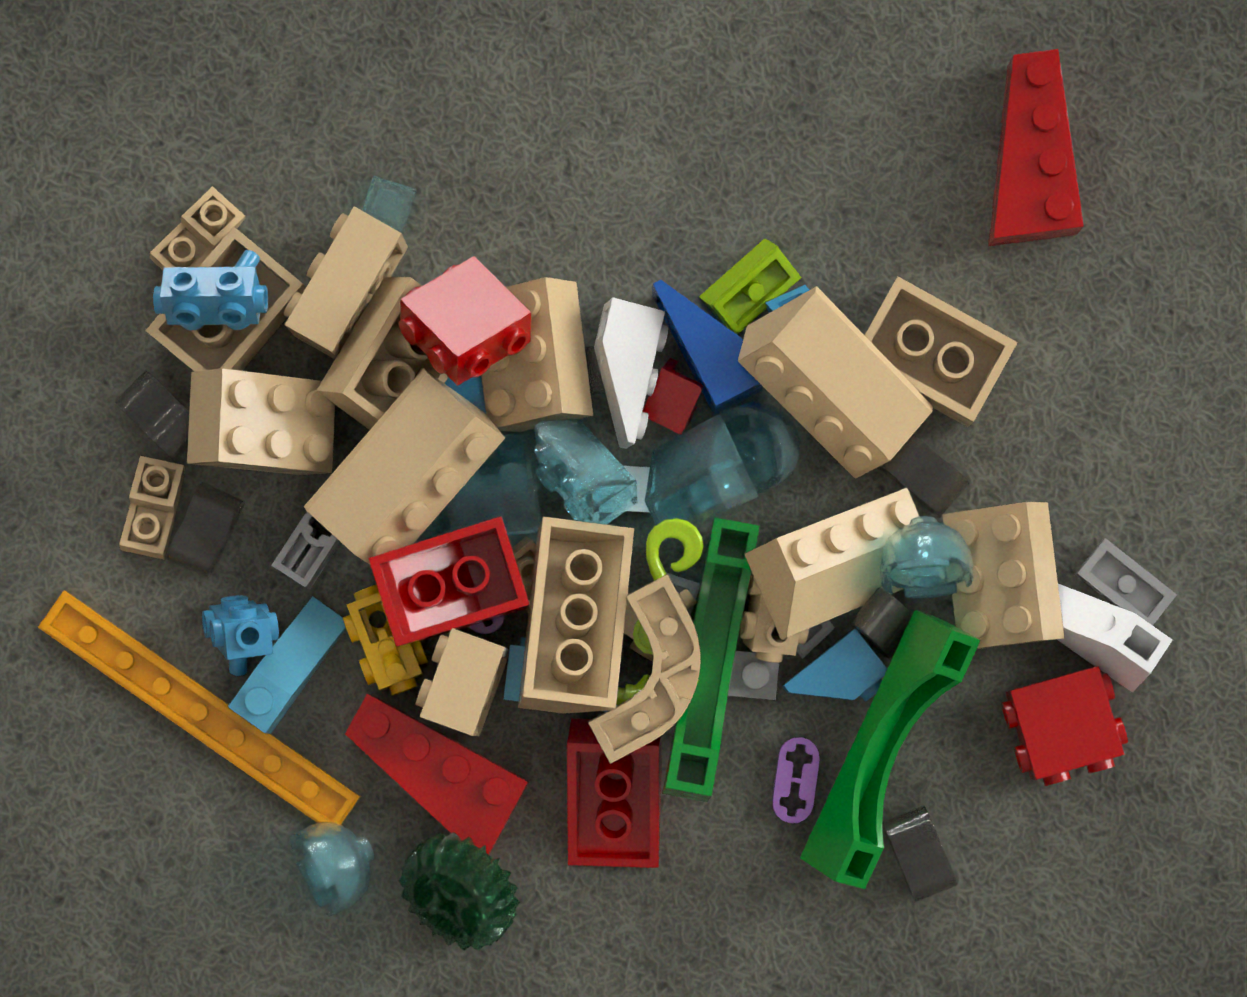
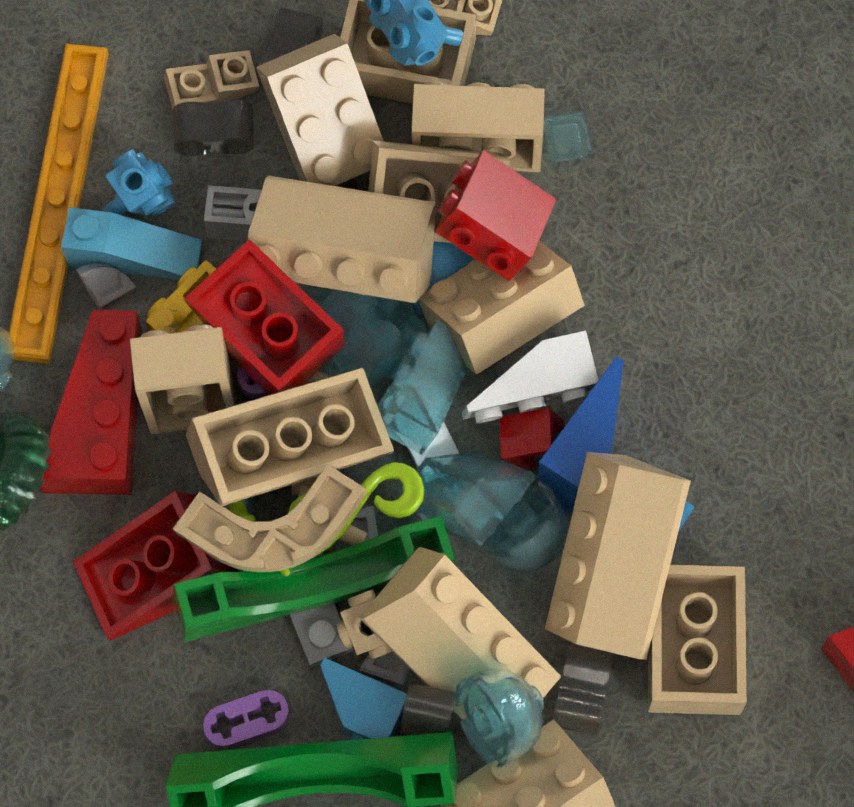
camera: 60 degrees right, 15 degrees down
(311, 707) = (104, 282): none -> light grey tile
(751, 282) = (670, 456): lime slope -> none

